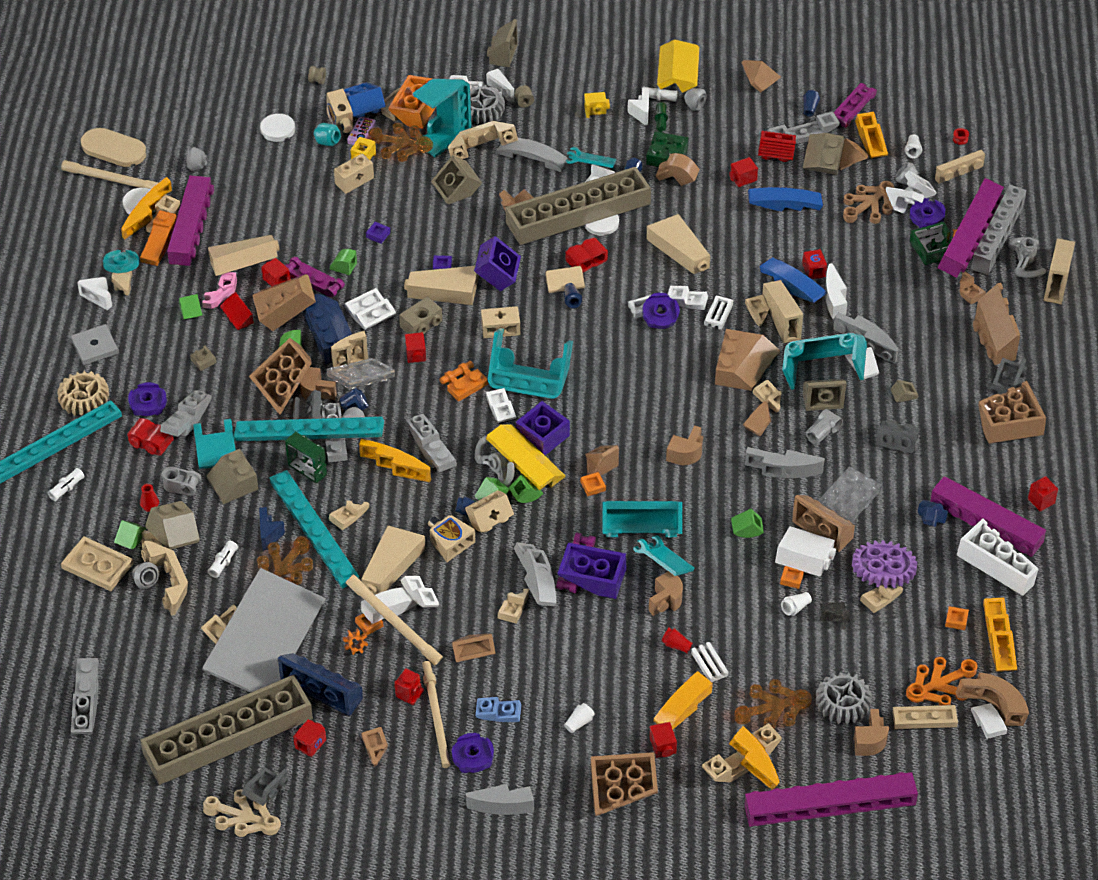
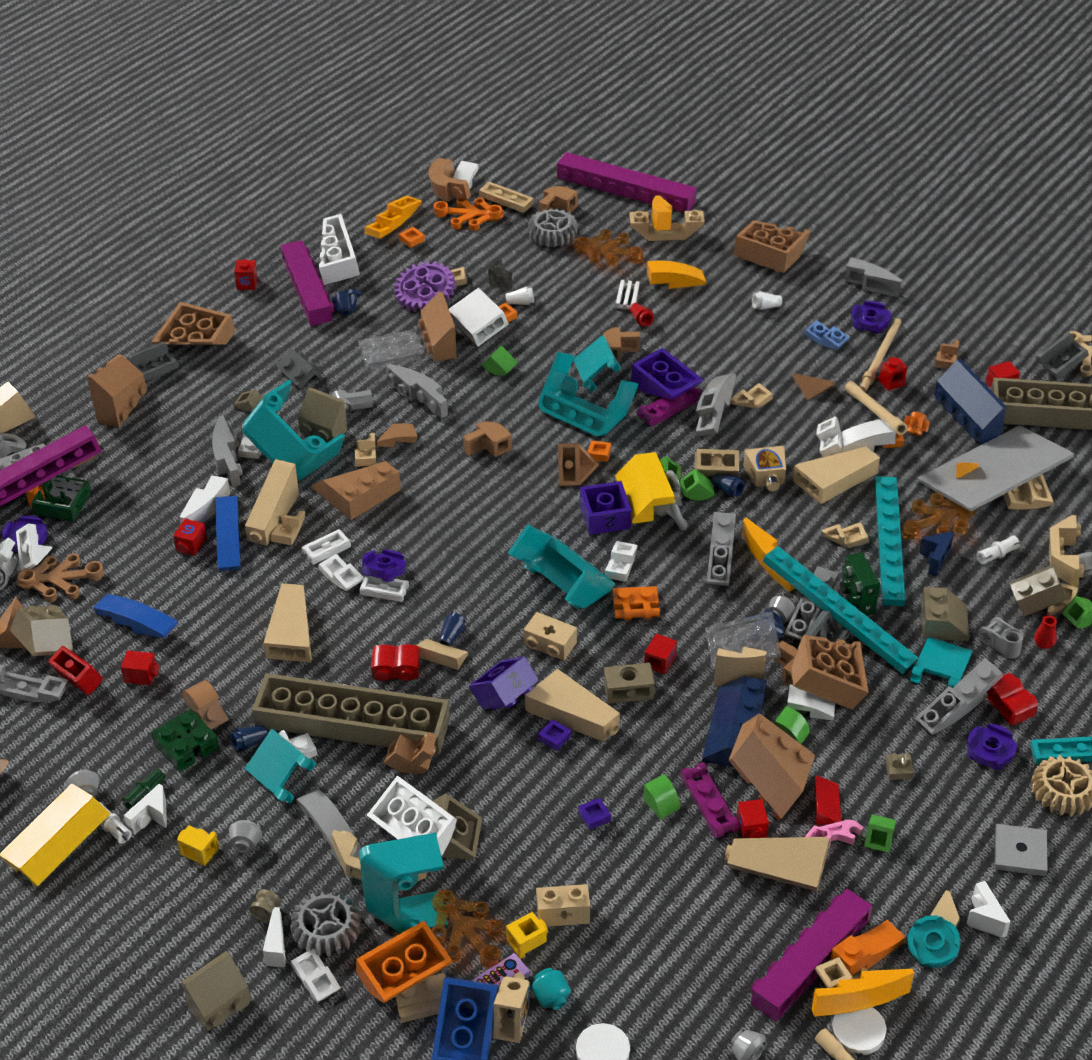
camera: 145 degrees left, 5 degrees down
(286, 614) = (964, 468): none -> light orange slope
(370, 309) = (673, 728): white slope -> none
(476, 155) = (410, 813): none -> white slope
(573, 120) = (244, 835): none -> light grey cone
(663, 740) = (714, 260): red brick -> none

